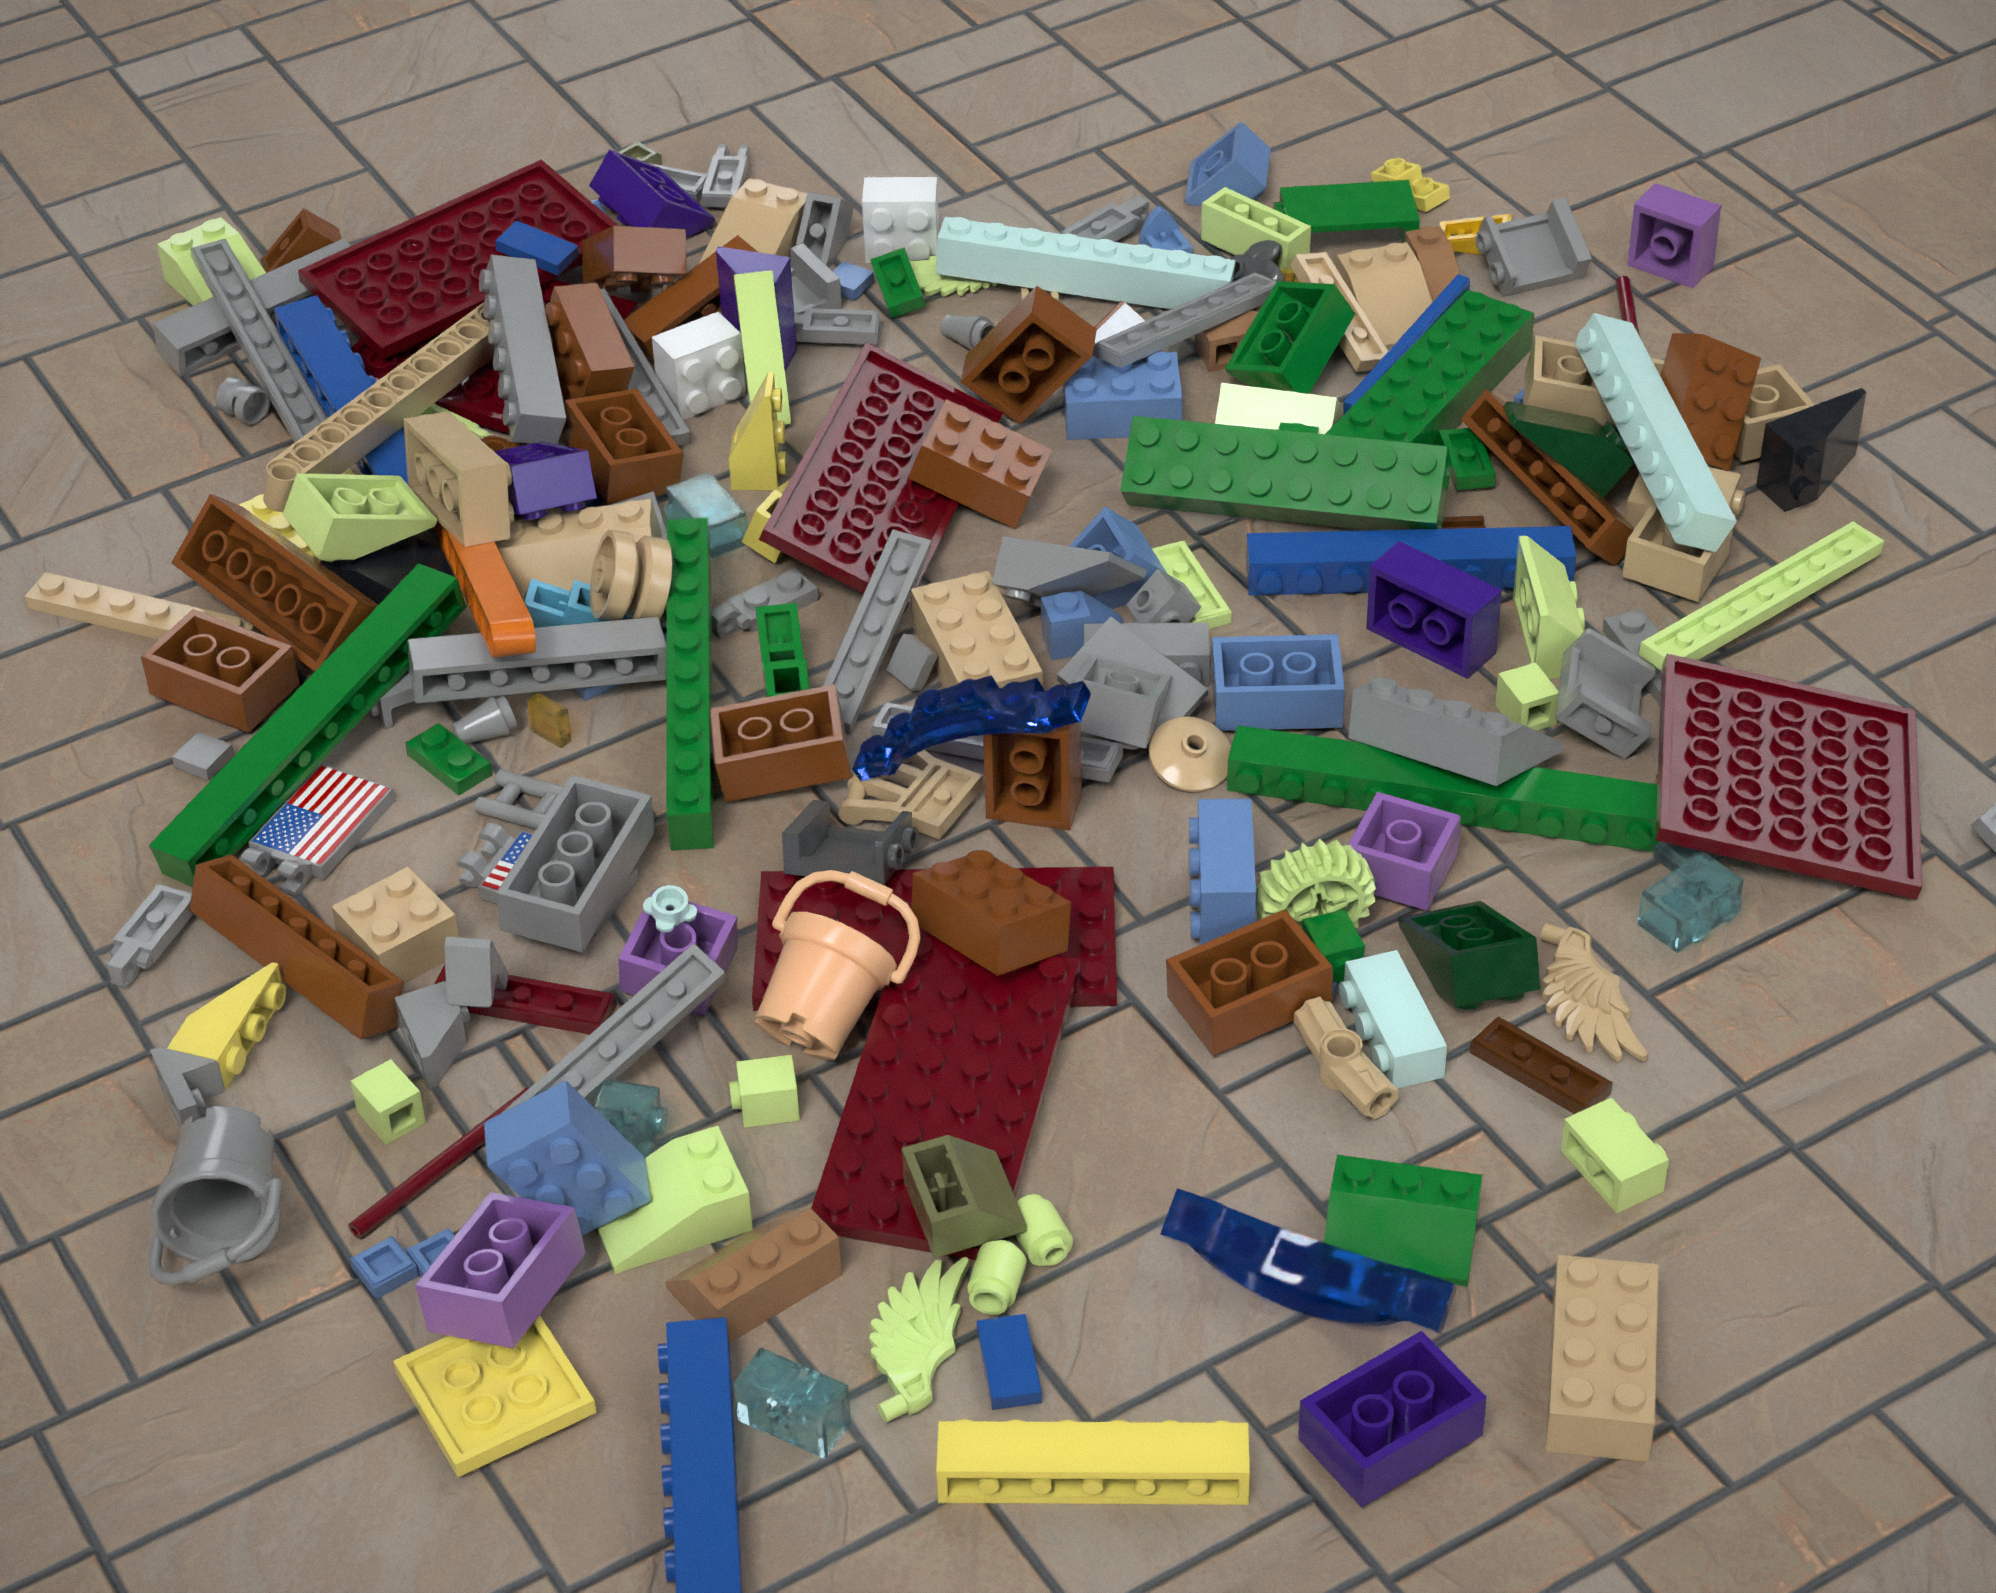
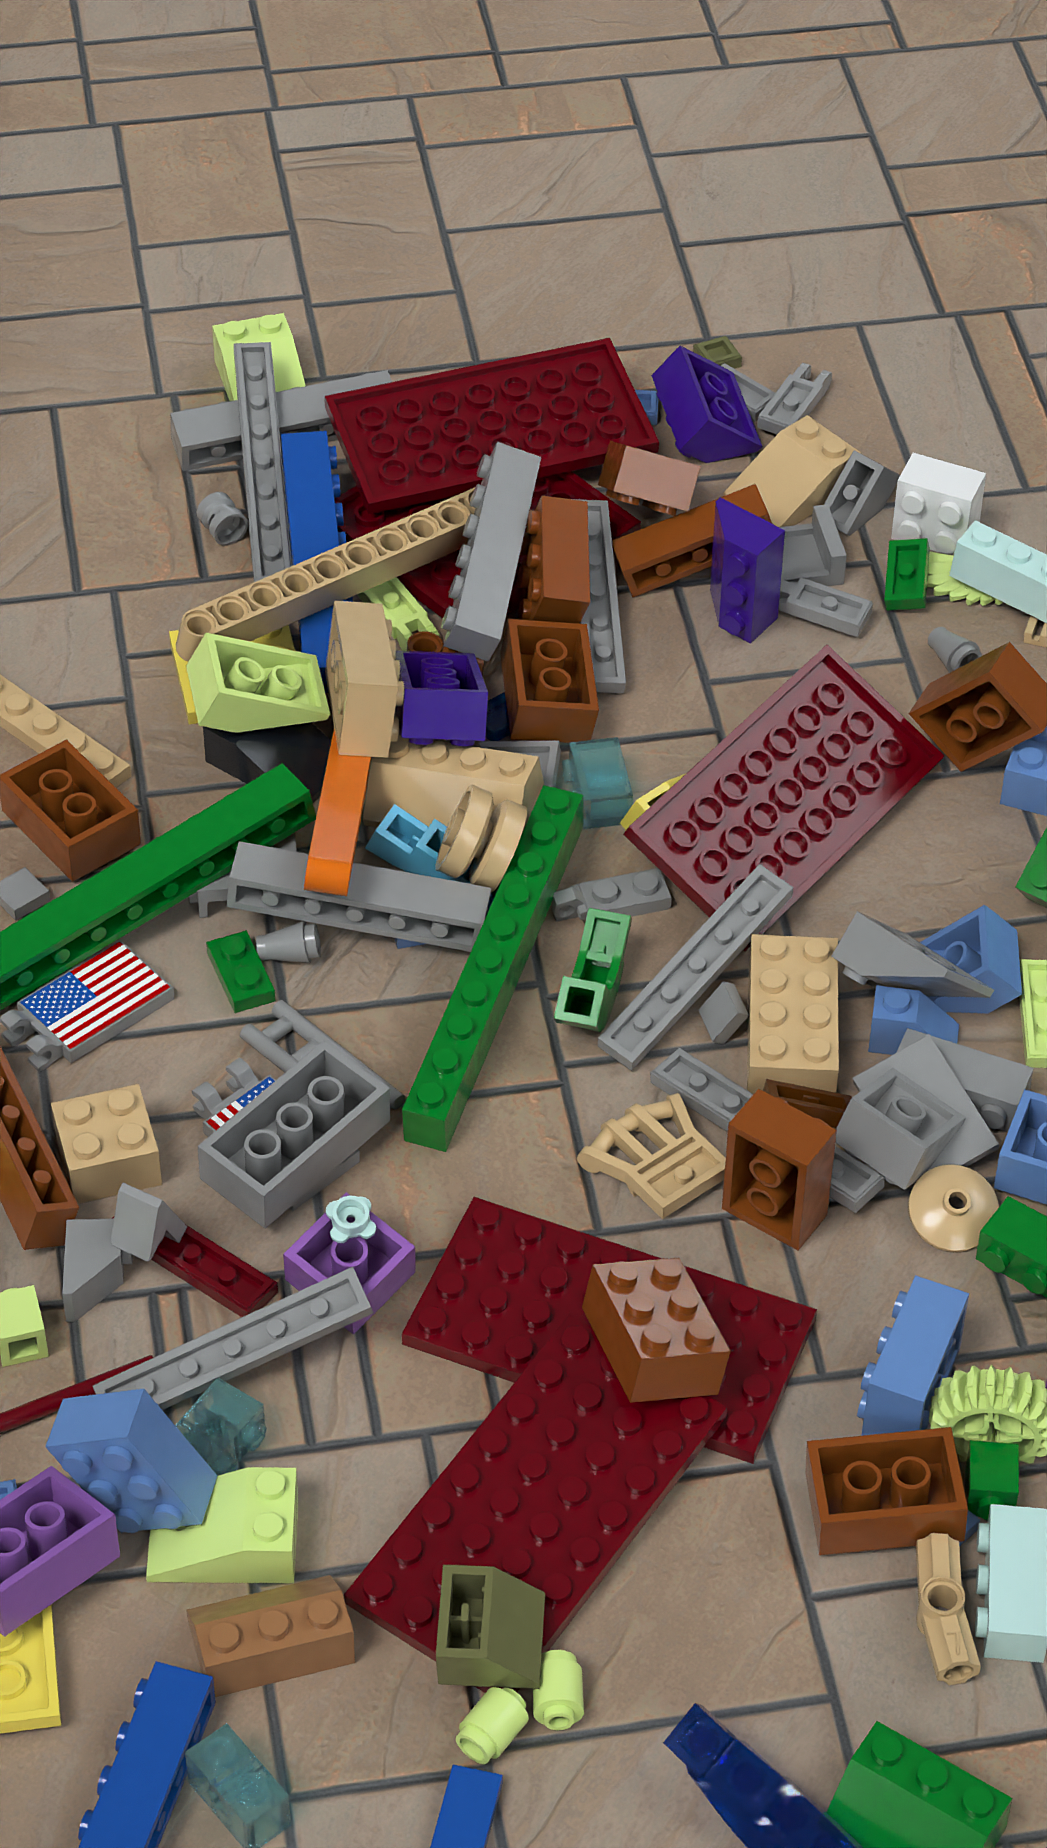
camera: 20 degrees right, 5 degrees up
(271, 581) = (153, 731): dark orange brick -> none
(301, 237) = (351, 358): dark orange slope -> none
(530, 243) = (562, 436): blue tile -> none
(549, 720) = (349, 962): clear yellow tile -> none
(700, 364) = (663, 614): white brick -> none
(756, 442) = (677, 725): light yellow slope -> none
(761, 334) = (724, 619): yellowish green tile -> none
(765, 1091) = (367, 1440): yellowish green brick -> none
(780, 743) = (549, 1064): dark orange brick -> none
(816, 846) = (559, 1204): dark grey panel -> none
(829, 969) = (465, 1344): light nougat piece -> none
(853, 280) = (864, 555): medium blue tile -> none
(916, 1336) = (392, 1757): yellowish green animal -> none
(969, 711) = (728, 1110): clear blue piece -> none
(980, 463) = (887, 812): dark orange brick -> none
(1163, 601) = (1001, 1029): light grey brick -> none

